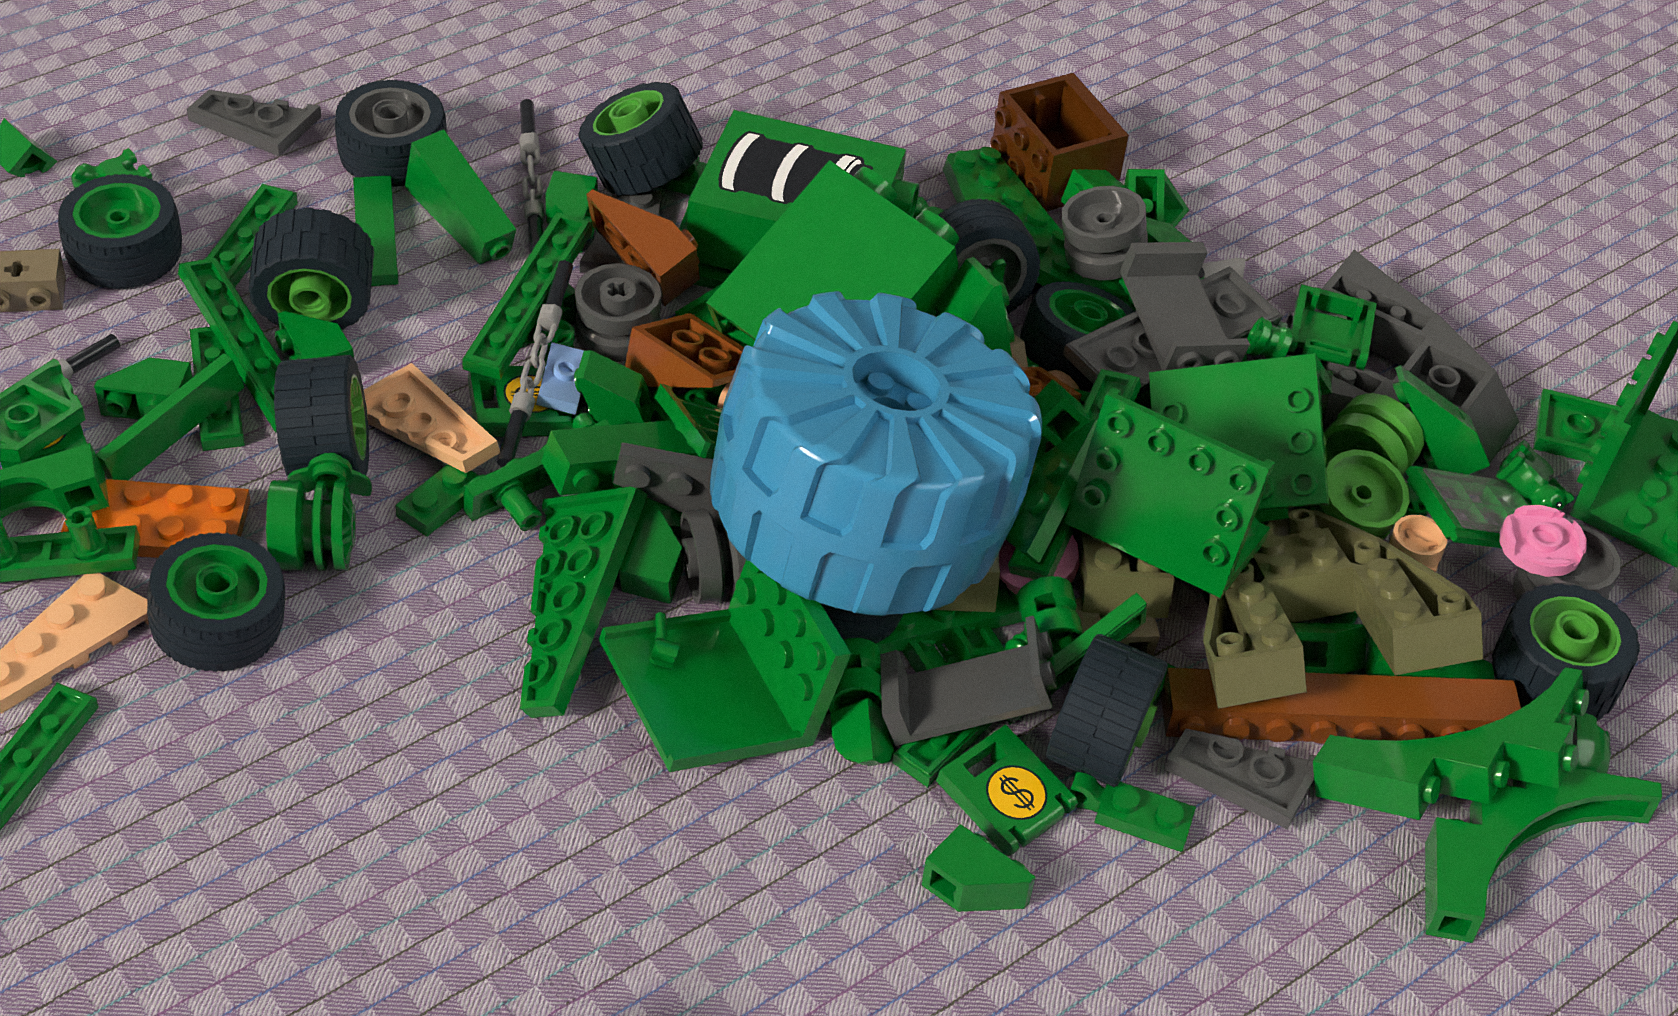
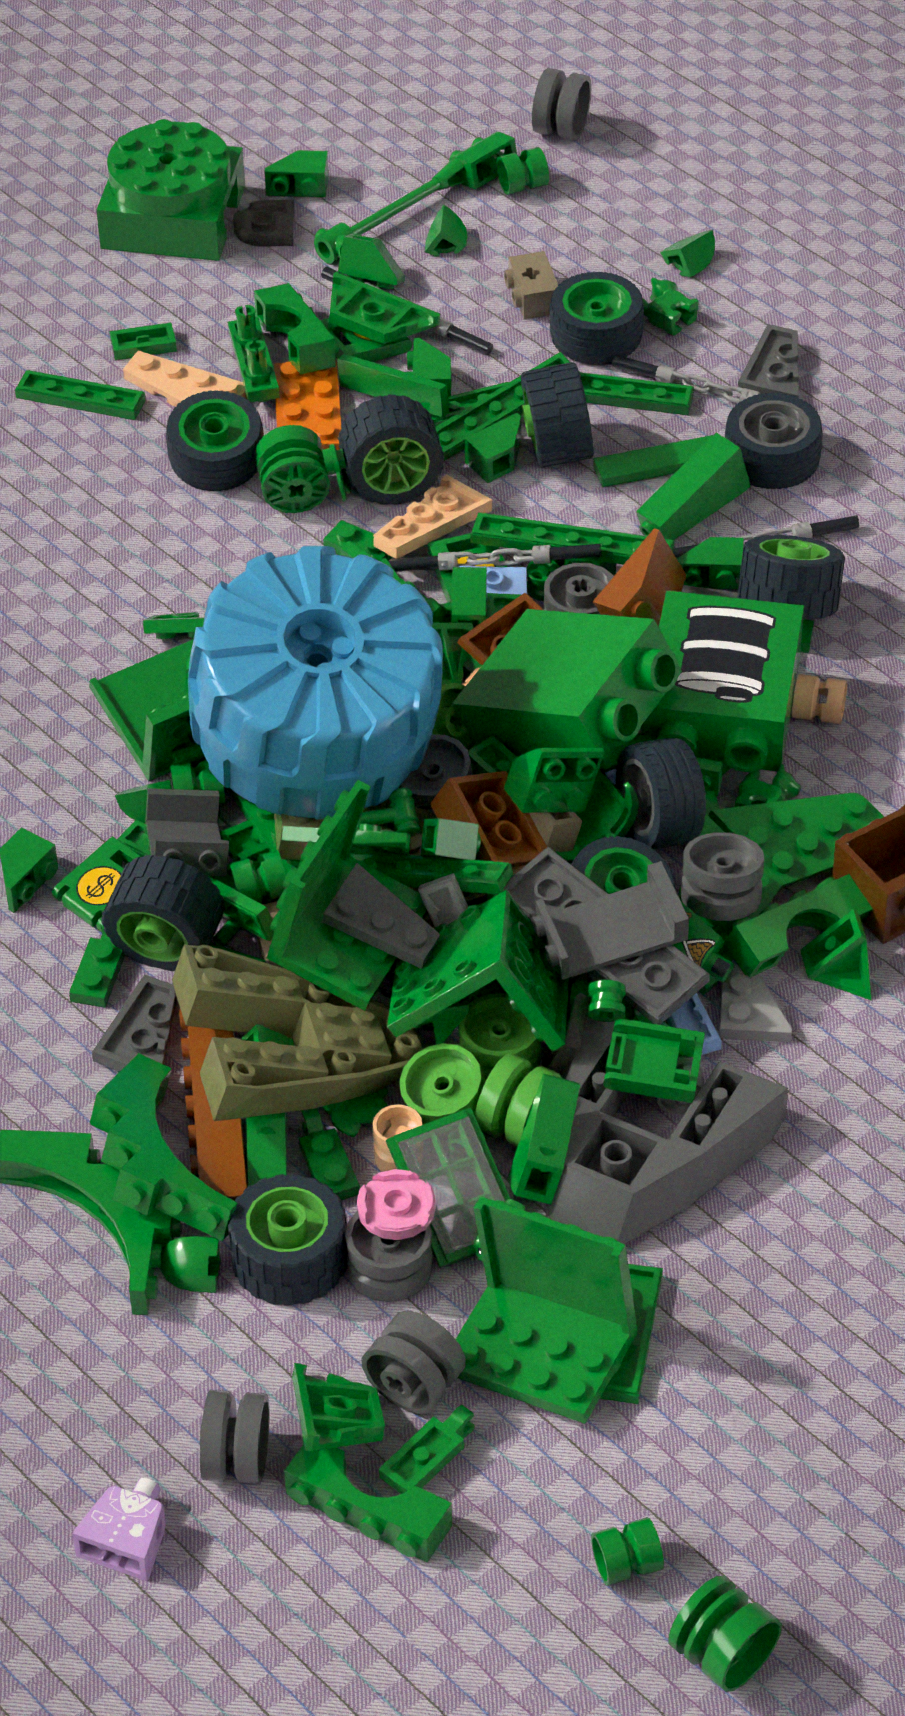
camera: 90 degrees right, 0 degrees up
(233, 201) = (668, 375): none -> light grey piece

